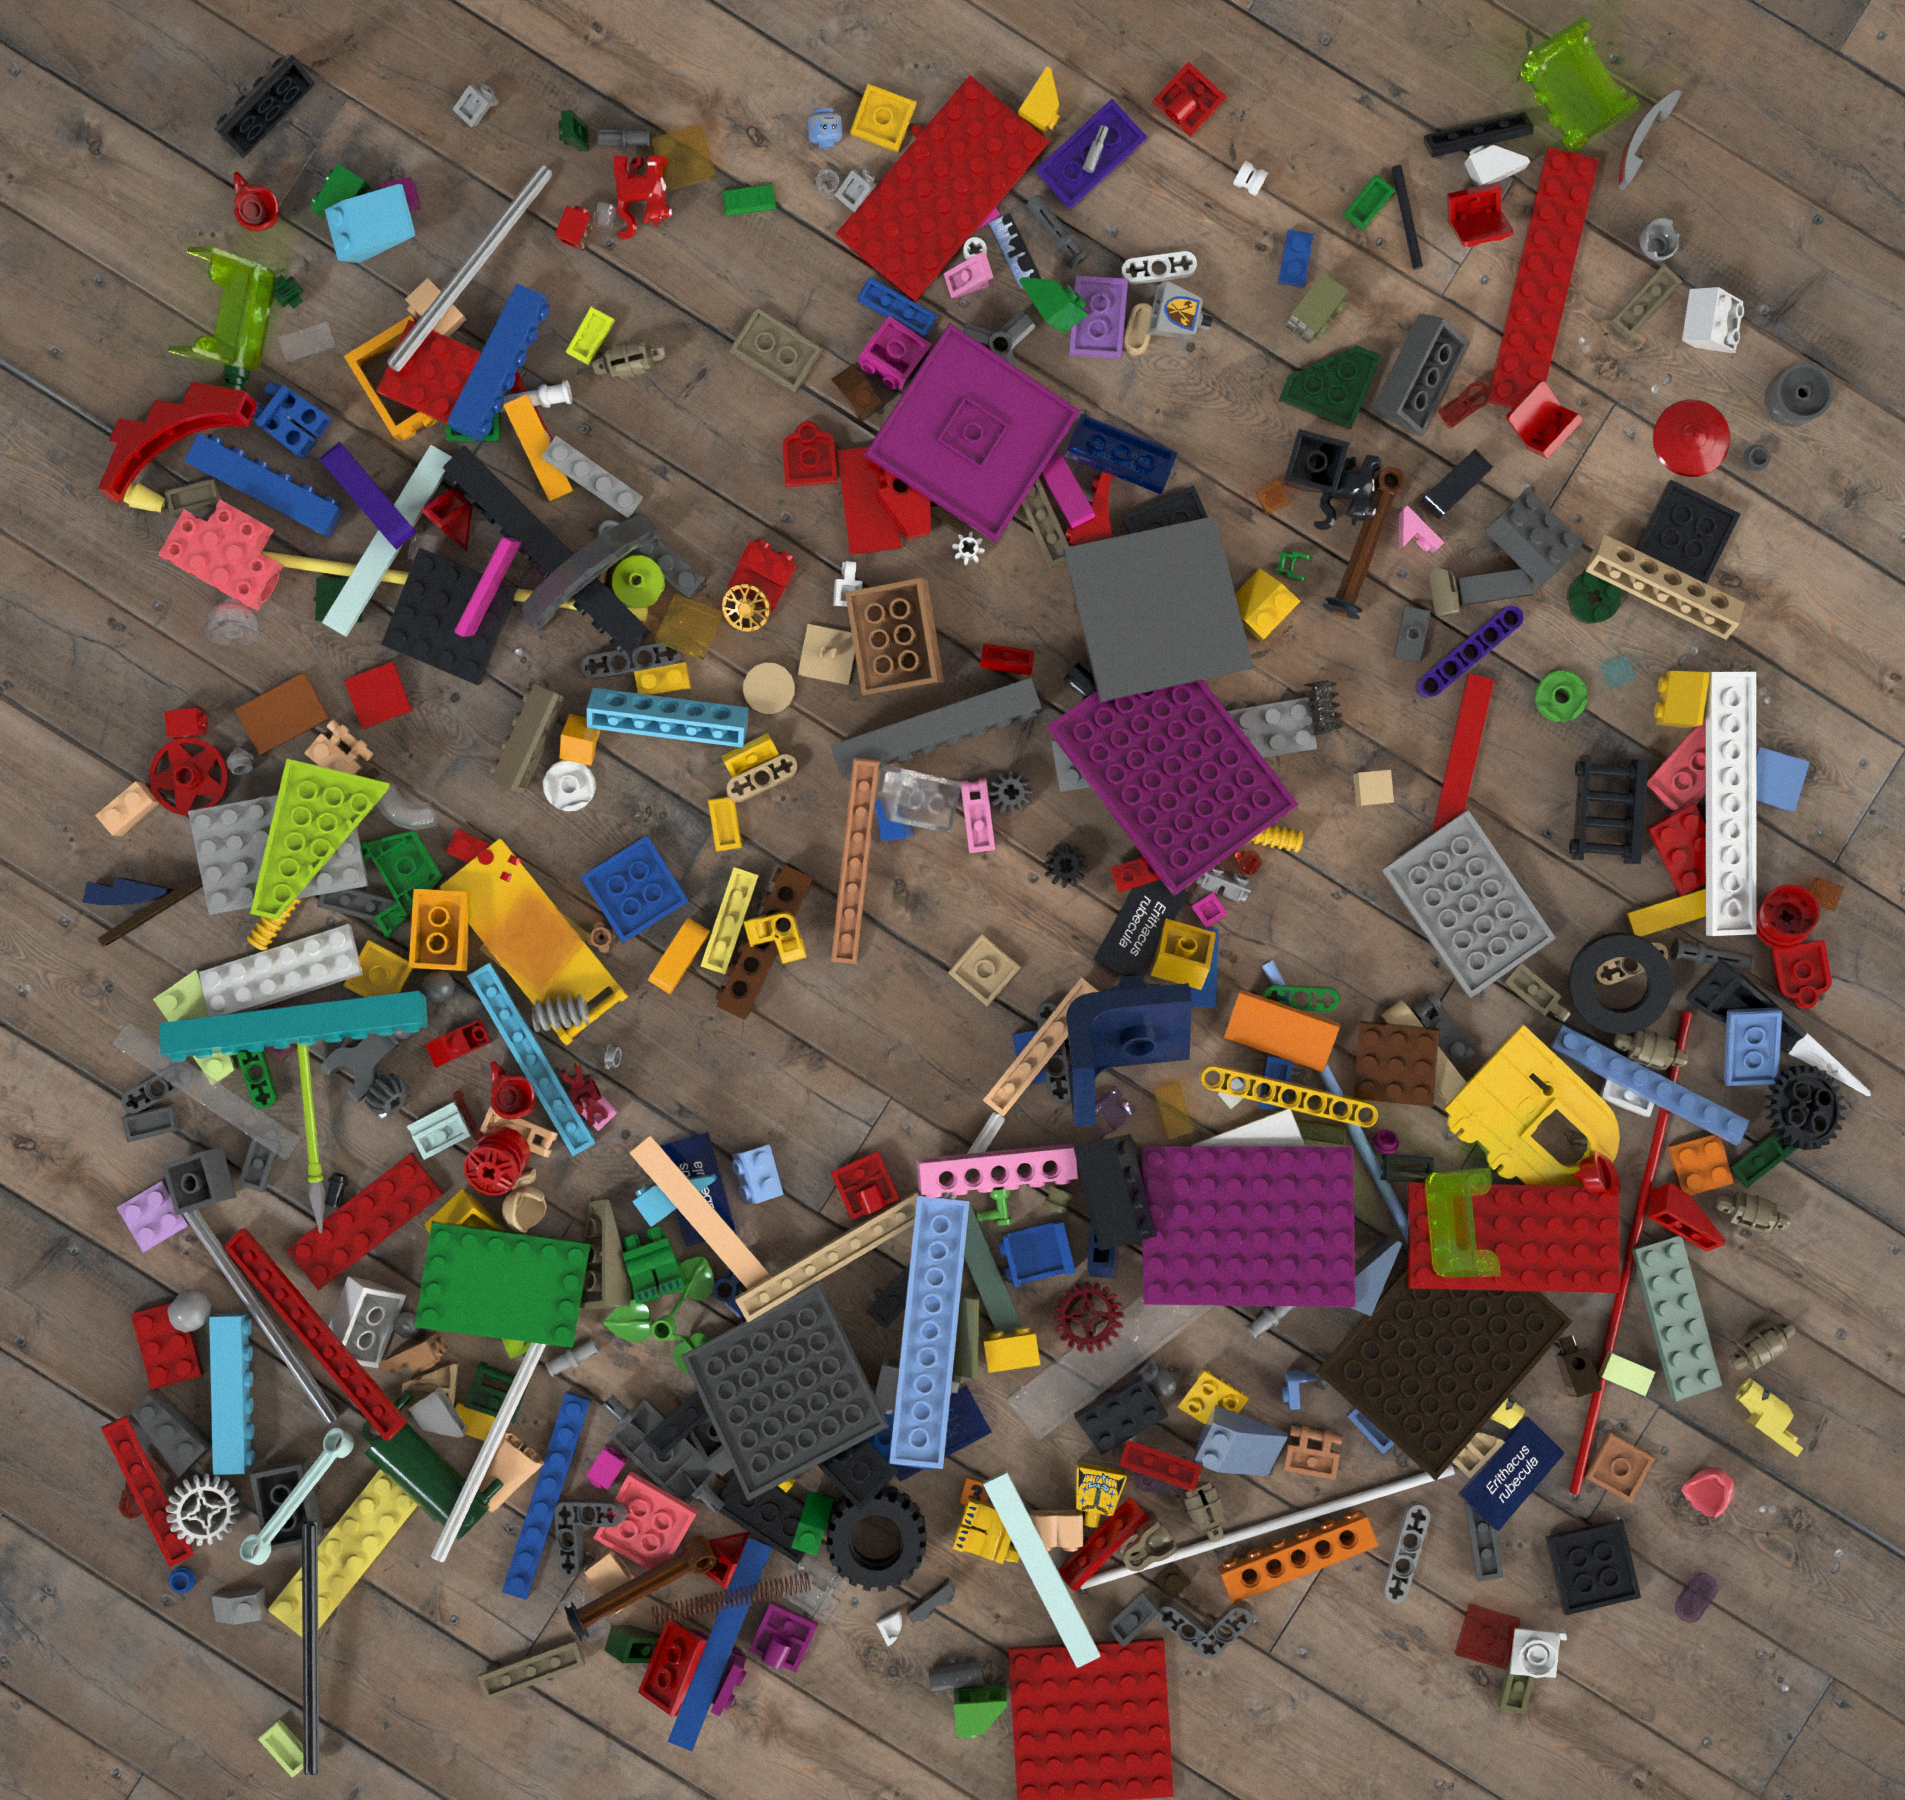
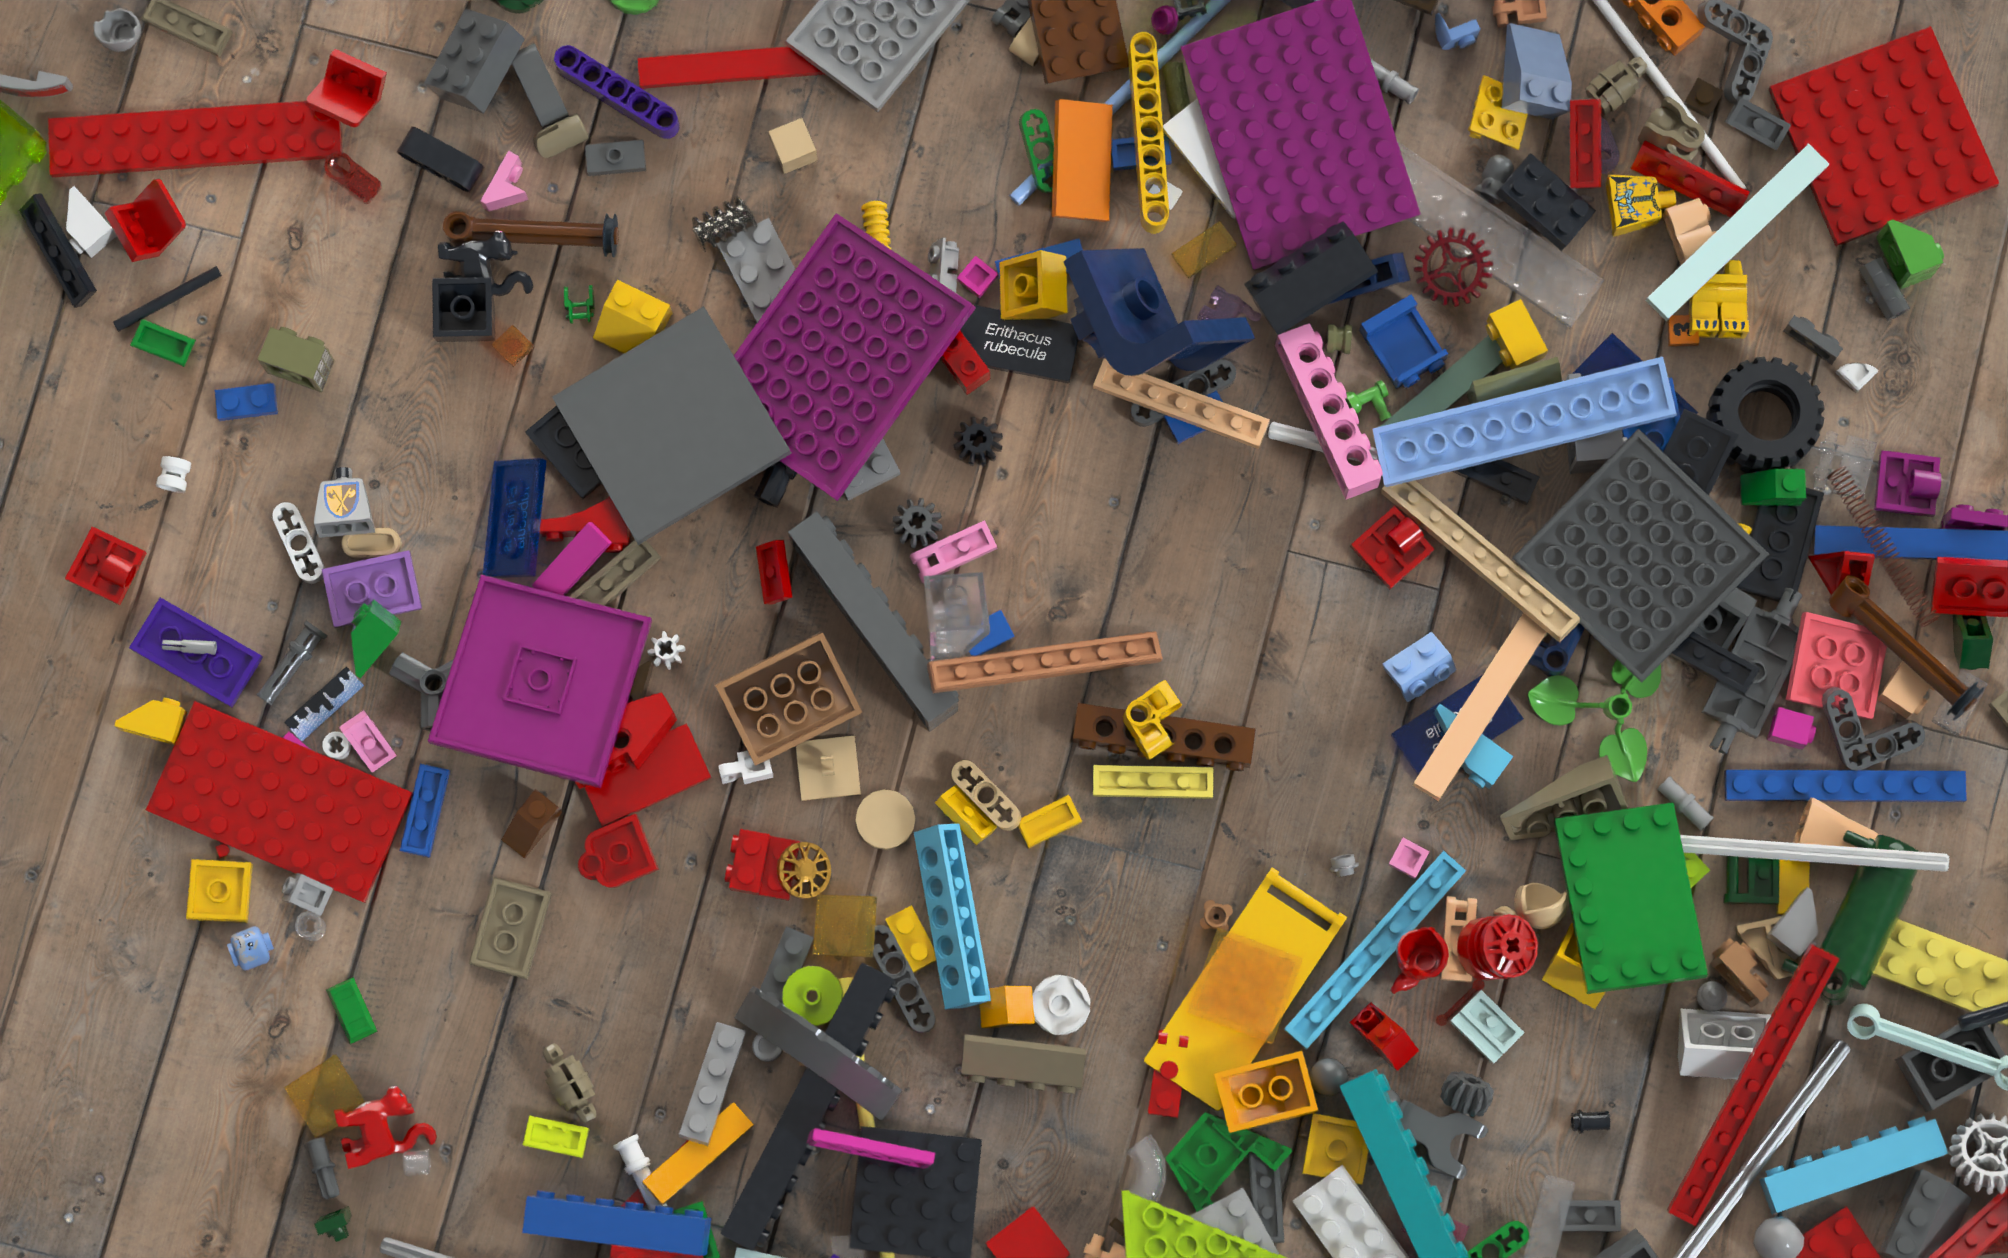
camera: 105 degrees left, 10 degrees down
(316, 1189) = (1571, 1151): lime piece -> none
(365, 1221) = (1614, 1079): red plate -> none
(452, 515) = (802, 1227): red slope -> none
(560, 1013) = (1312, 930): light grey piece -> none
(574, 227) = (439, 1190): red brick -> none
(584, 1094) = (1393, 875): dark red pin -> none
(635, 889) = (1151, 895): blue plate -> none
(651, 1258) = (1549, 751): green hips -> none
(679, 955) = (1209, 824): light orange beam -> none
(893, 354) = (477, 795): dark pink plate -> none
(984, 970) = (1118, 494): tan tile -> none
(1248, 862) = (913, 250): clear red plate -> none
(1333, 386) = (374, 319): dark green plate -> none
(1421, 373) = (333, 232): dark grey slope -> none

